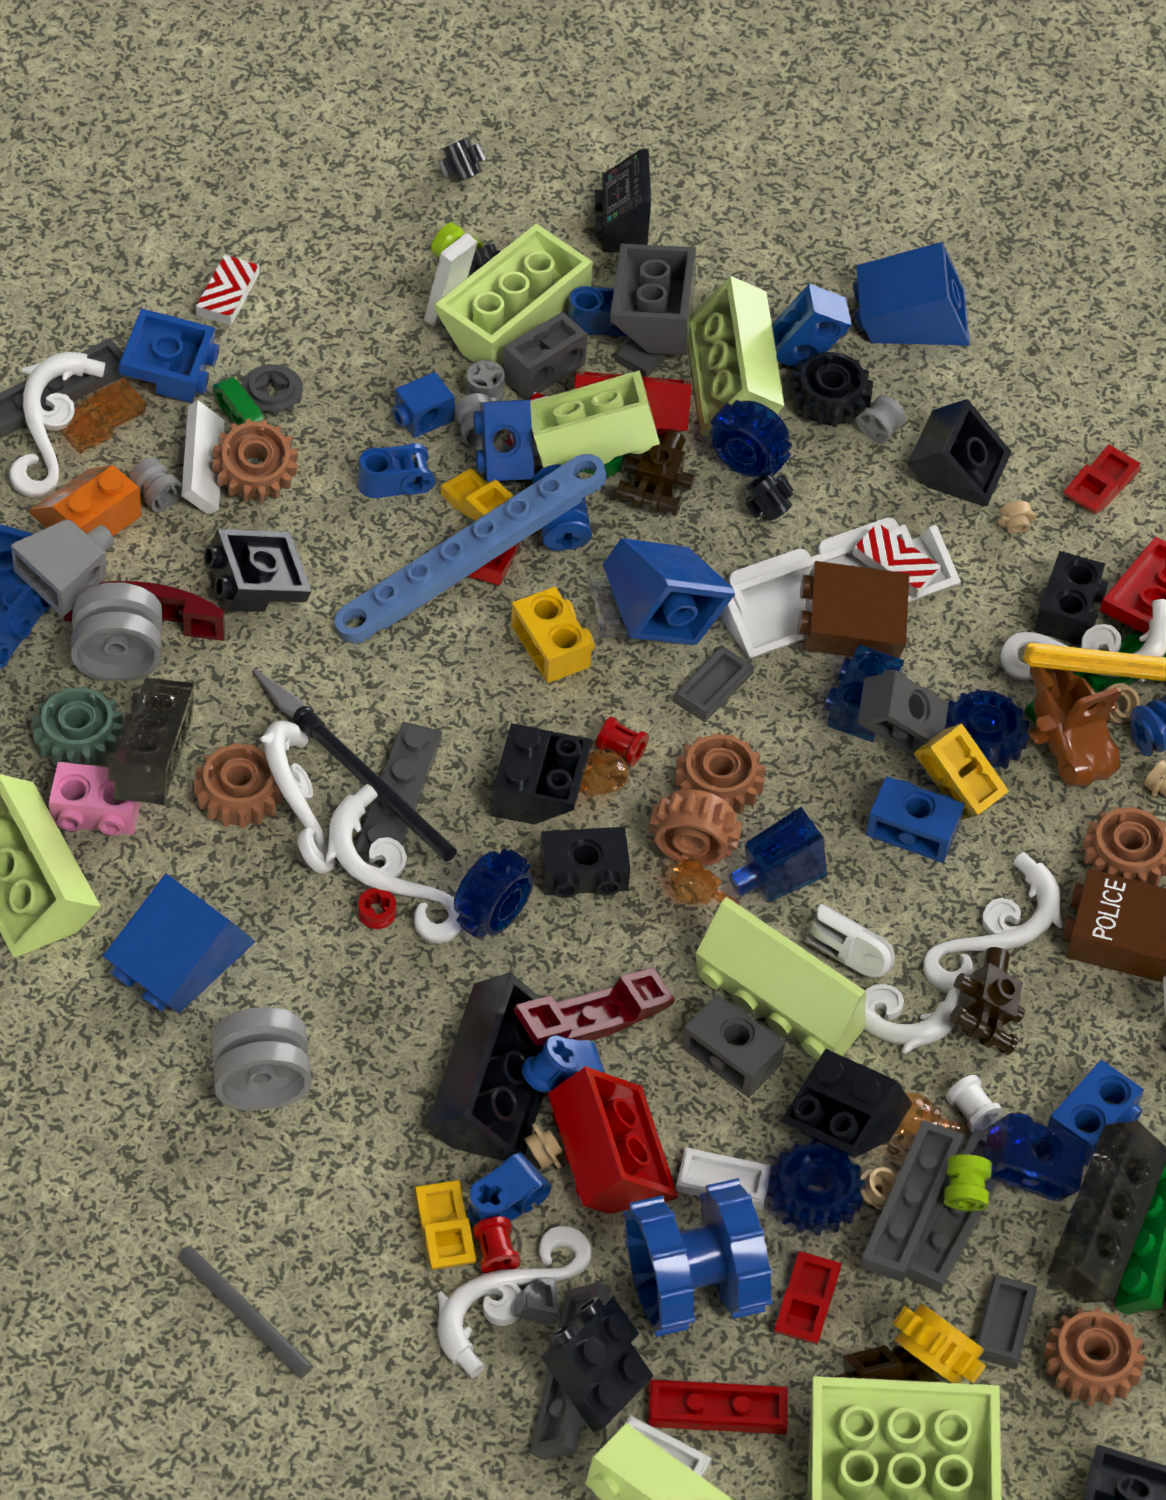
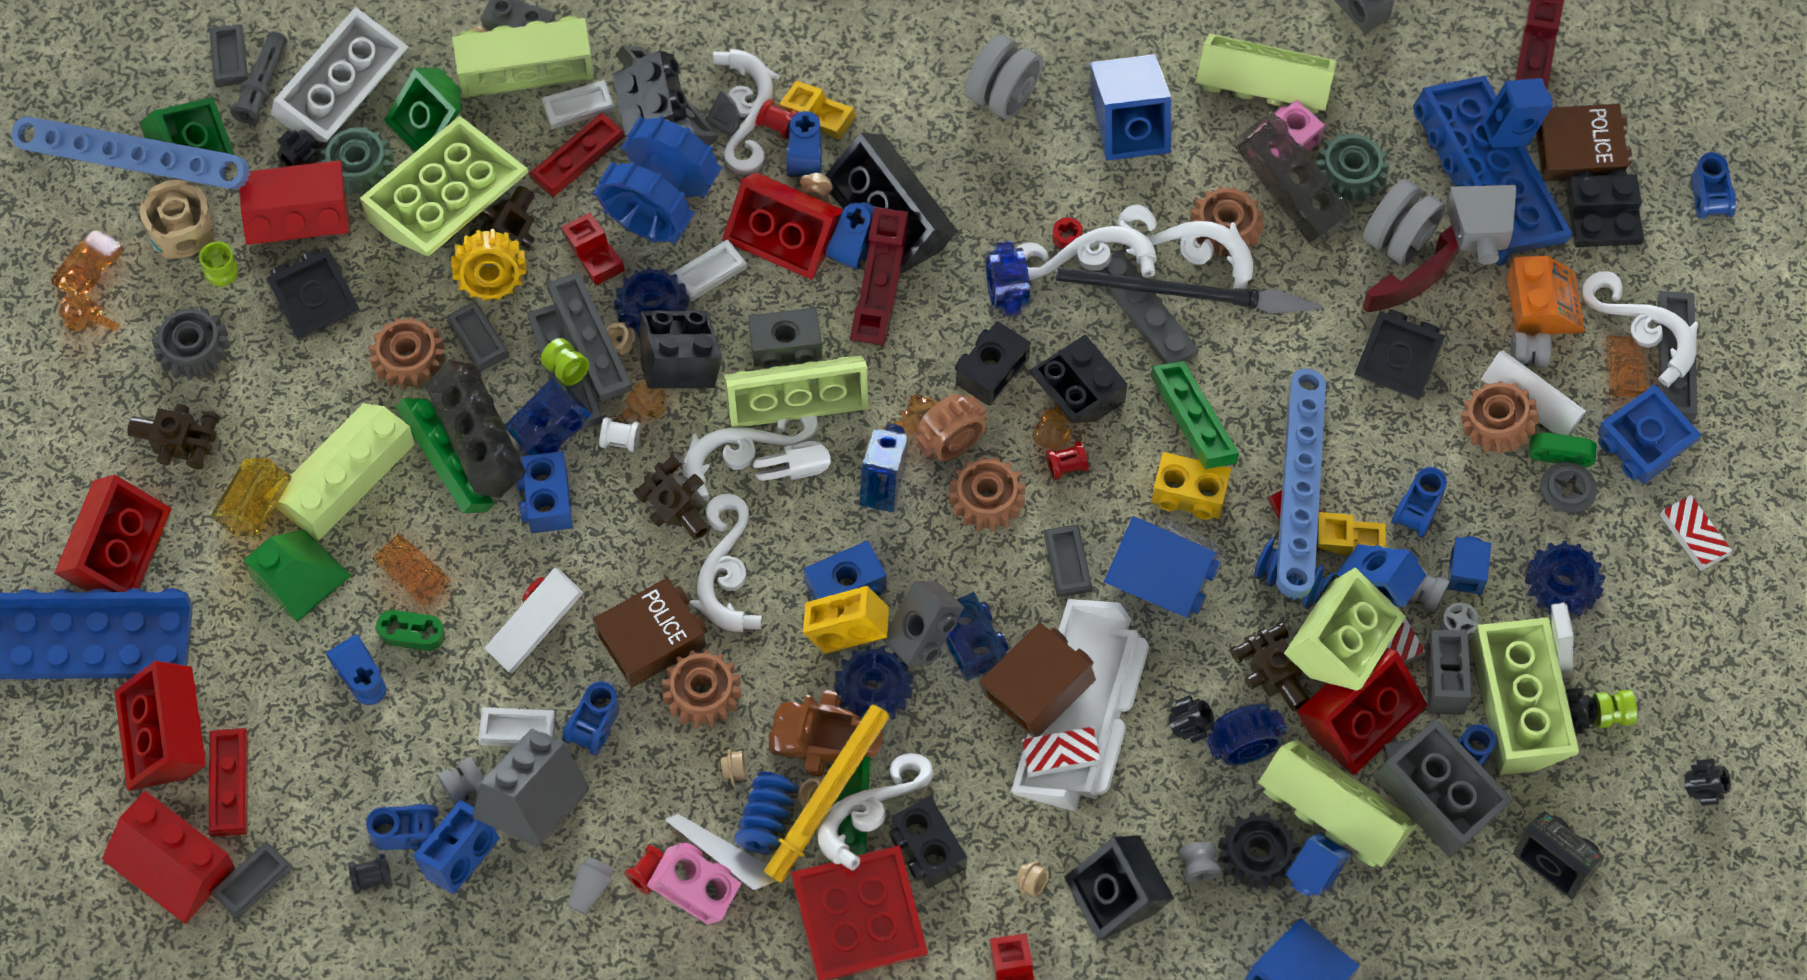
camera: 135 degrees right, 10 degrees up
(369, 339) = (1569, 562): none -> clear blue gear
(484, 665) = (1194, 415): none -> green plate

